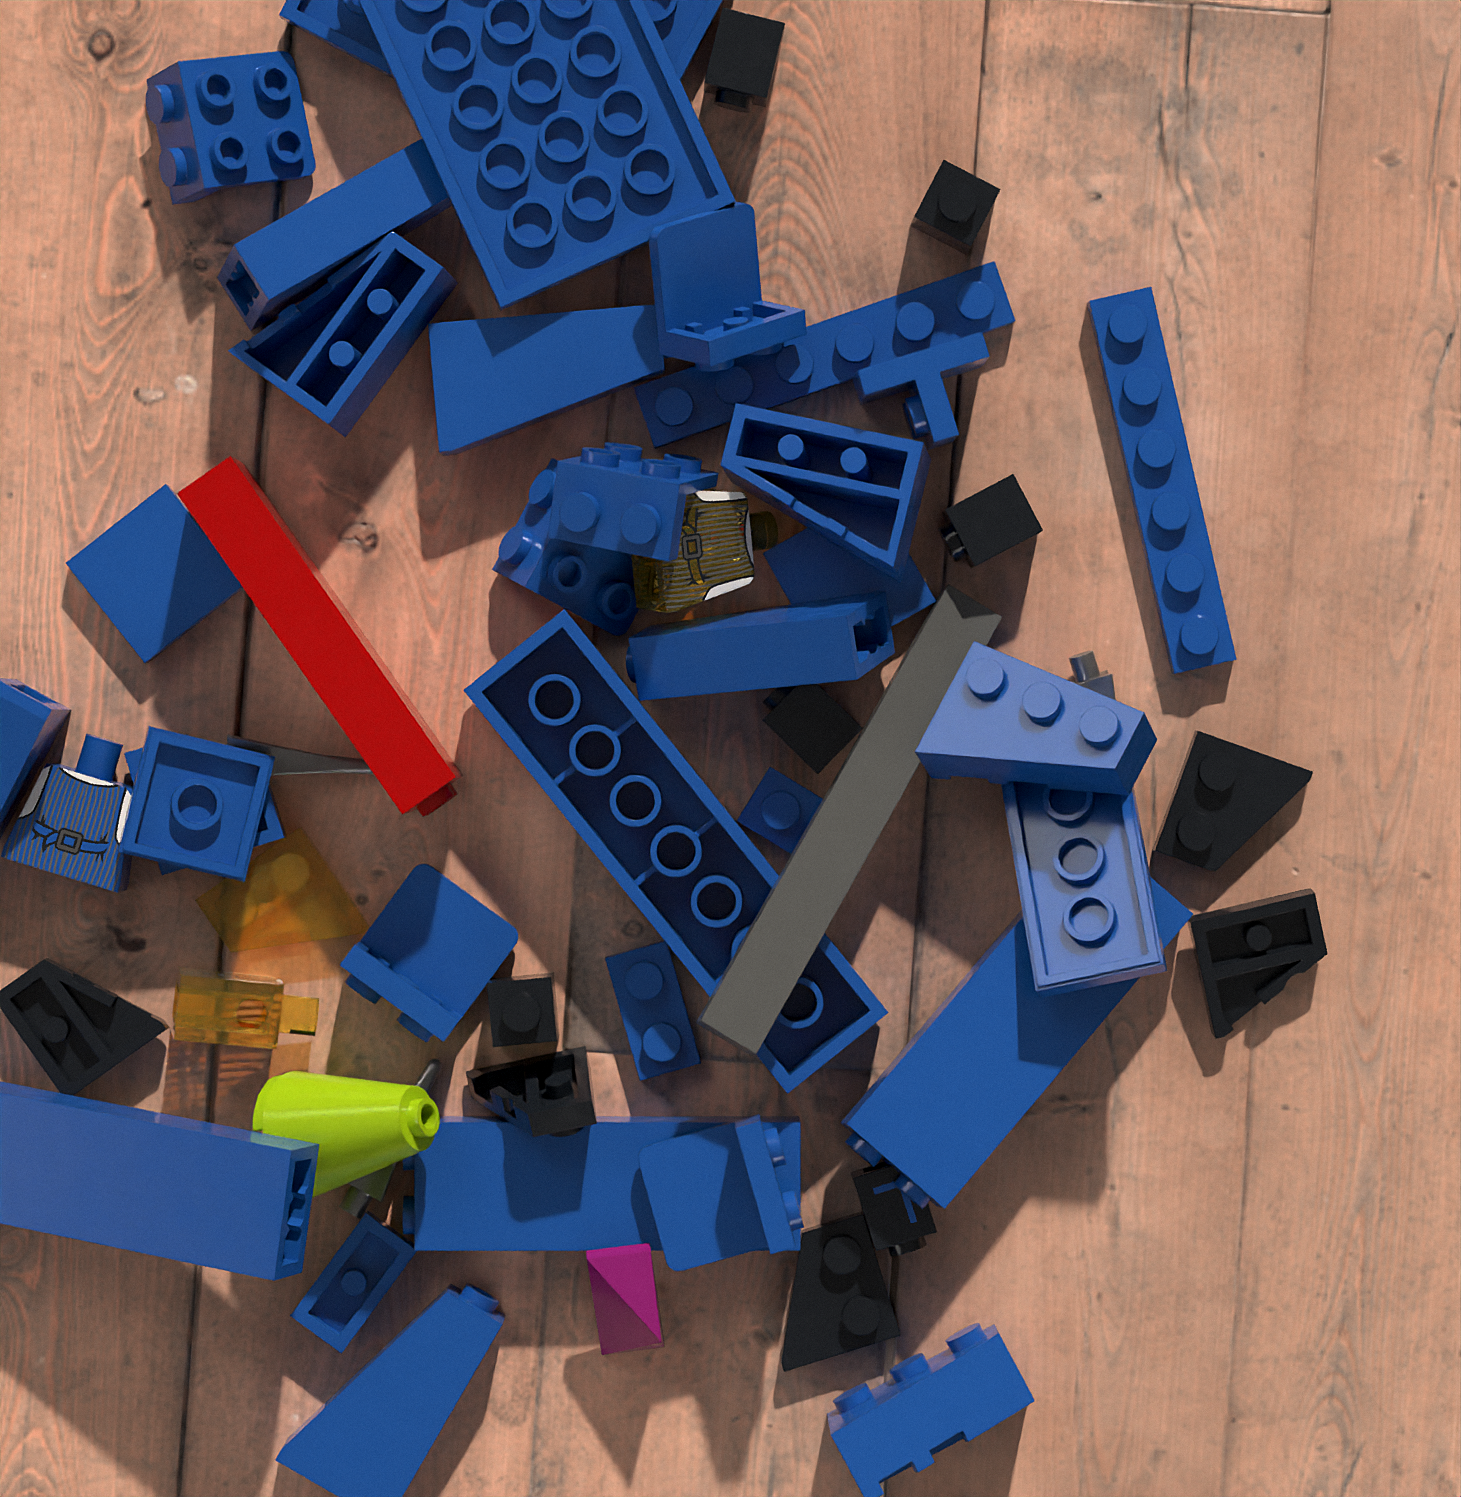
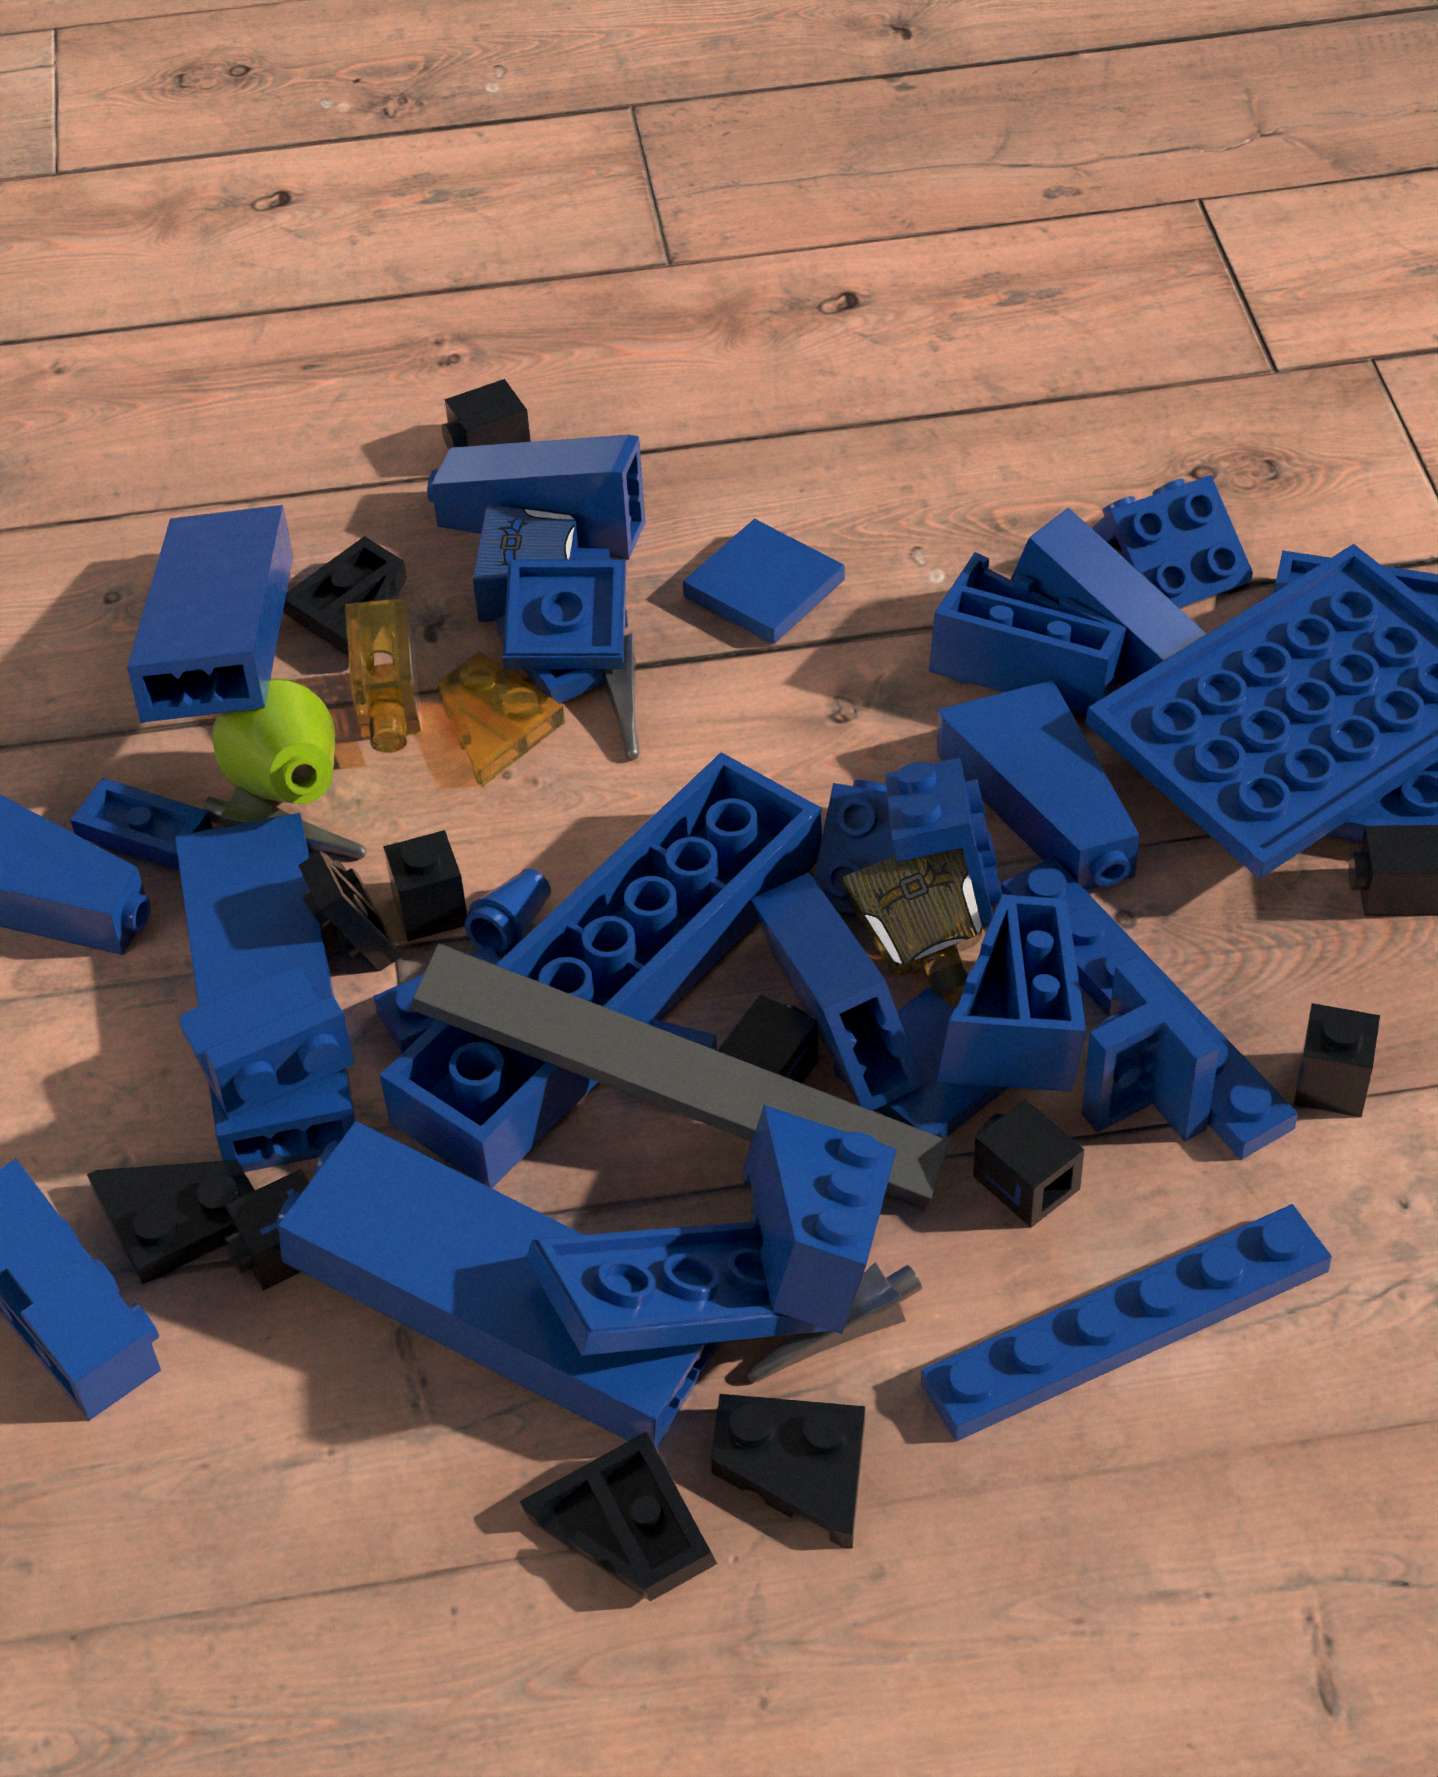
camera: 75 degrees right, 40 degrees down
(322, 637) = (736, 666): red brick -> none
(429, 953) = (482, 813): blue bracket -> none
(567, 933) = (507, 911): none -> blue cone
(625, 1298) = (146, 1018): magenta slope -> none
(711, 291) = (1176, 866): blue bracket -> none

